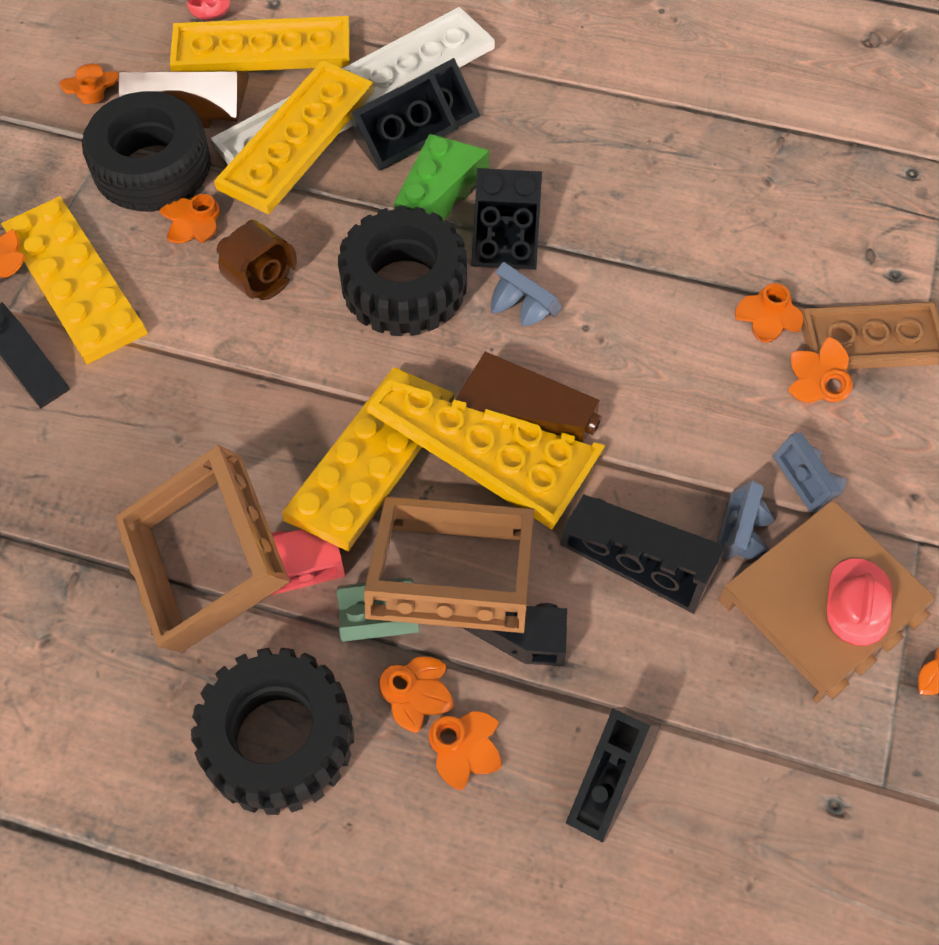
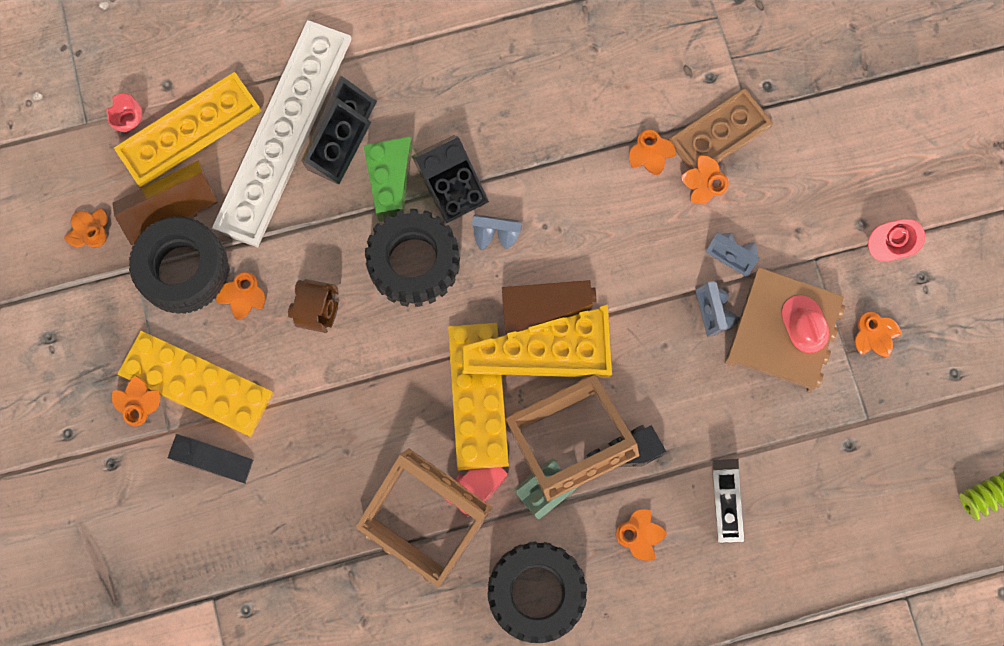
camera: 30 degrees left, 15 degrees up
(294, 137) = (273, 196): yellow plate -> none
(421, 694) = (599, 520): orange plate -> none
(643, 551) = (670, 362): black wedge -> none

